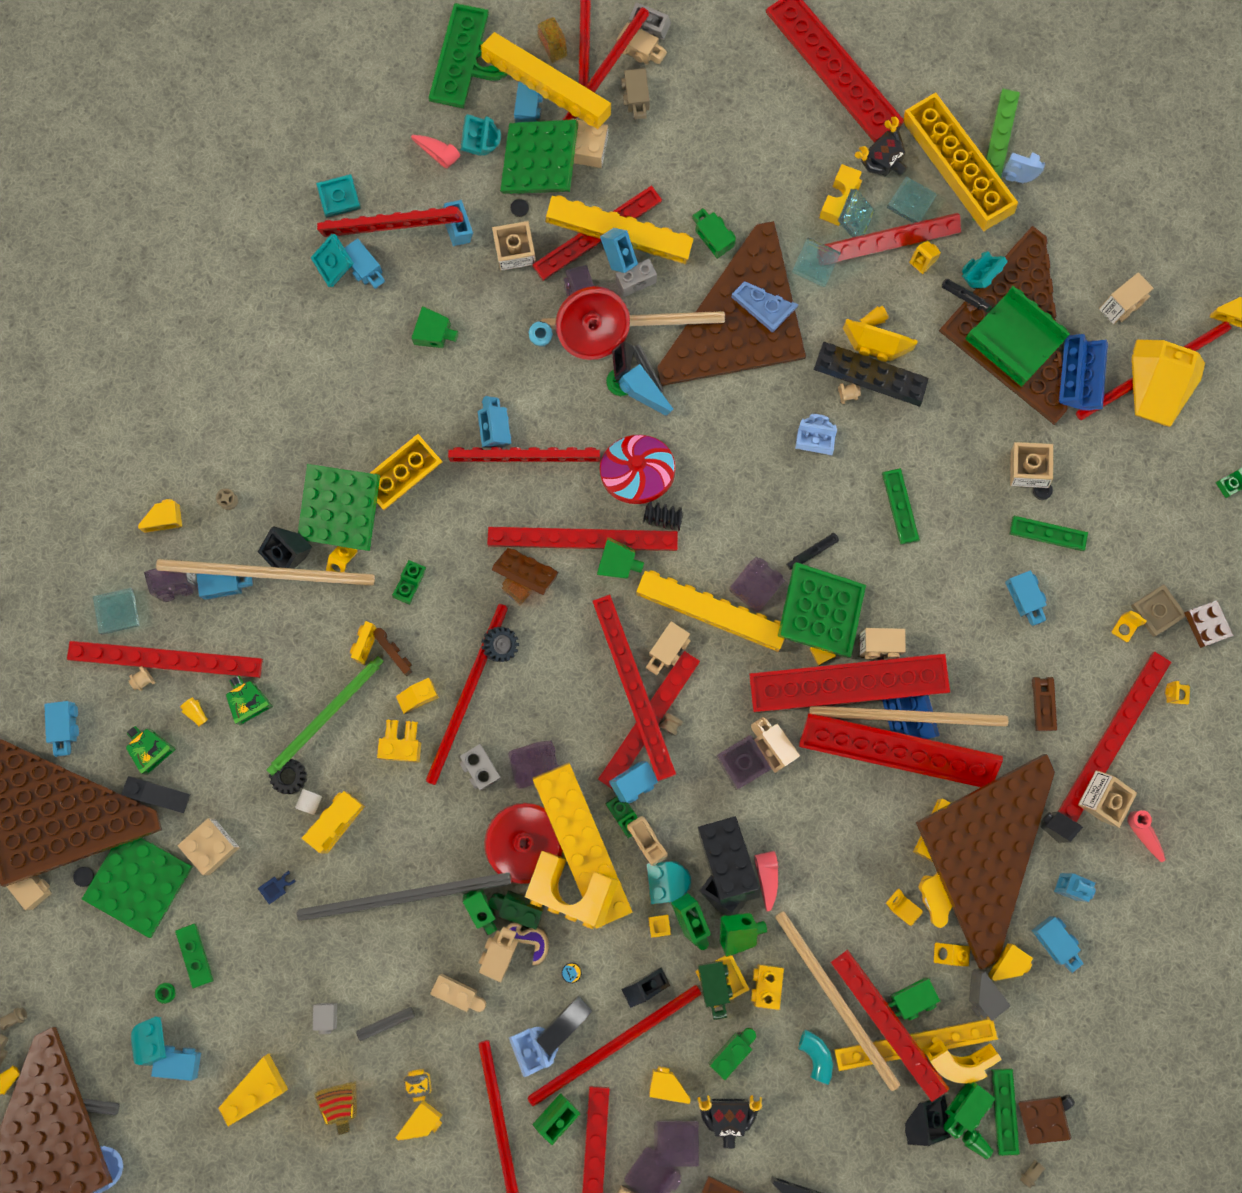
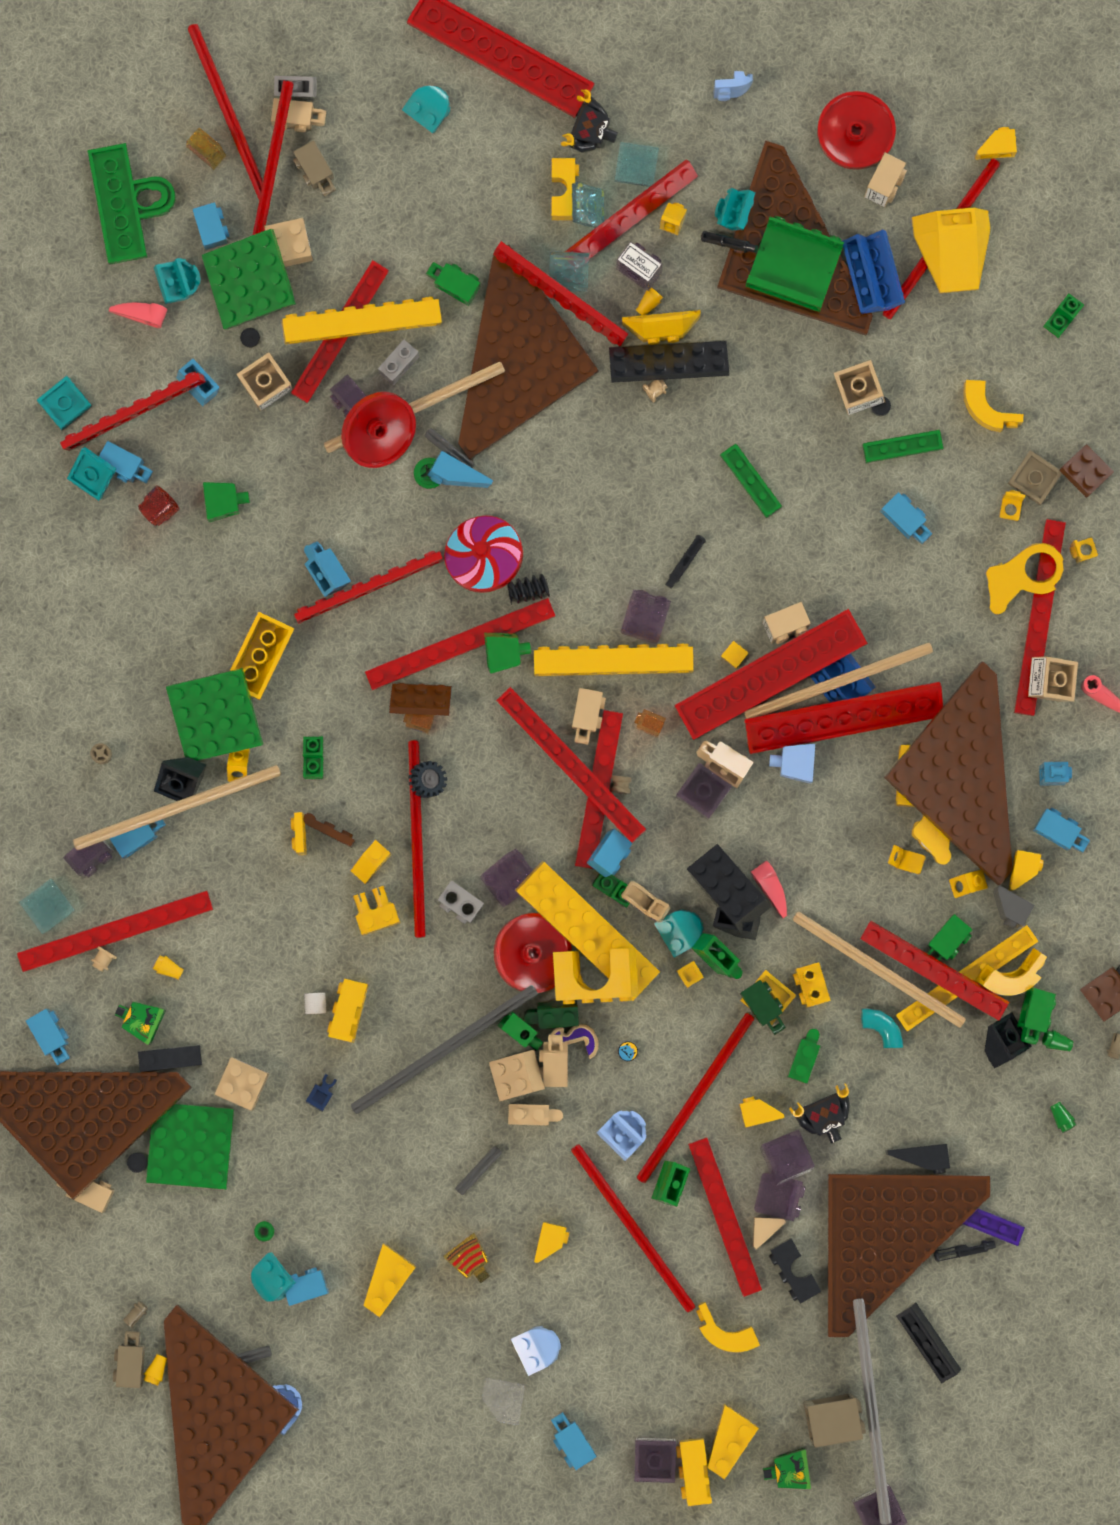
camera: 20 degrees left, 5 degrees up
(162, 517) = (47, 797): yellow slope -> none
(194, 955) = (274, 1187): green plate -> none
(246, 700) = (212, 935): green torso -> none
(300, 778) = (272, 985): black tyre -> none
(324, 716) = (293, 917): bright green piece -> none
(324, 1017) = (421, 1188): light grey brick -> none
(375, 310) = (158, 506): none -> clear red piece
(417, 1085) = (532, 1210): head -> none
(458, 951) = (516, 1075): none -> tan brick
(540, 334) = (330, 460): medium azure head -> none
(546, 80) = (221, 199): yellow brick -> none
(563, 1025) = (641, 1100): black slope -> none
(619, 250) = (372, 345): dark azure brick -> none
(622, 359) = (420, 449): black slope -> none
(645, 987) = (701, 1034): black slope -> none
(720, 680) = (649, 723): none -> clear orange brick
(739, 933) = (765, 948): green torso -> none
(754, 83) = (428, 107): none -> teal slope
(765, 307) = (538, 339): medium blue wing -> none
(801, 278) = (555, 290): none -> red plate
(816, 434) = (641, 445): light blue slope -> none
(822, 610) = (717, 615): green plate -> none
(838, 772) = (795, 762): none -> light blue torso
(879, 282) = (639, 265): none -> brick
(960, 162) = (667, 107): yellow brick -> none
(1002, 130) = (701, 79): bright green plate -> none
(1005, 1112) = (1071, 1002): green tile -> none
(1044, 704) = (962, 614): reddish brown plate -> none
(1060, 827) = (1019, 723): black slope -> none
(1103, 690) = (1010, 578): none -> yellow animal
(1116, 248) = (856, 130): none -> red dish
(1134, 535) = (981, 411): none -> yellow arch

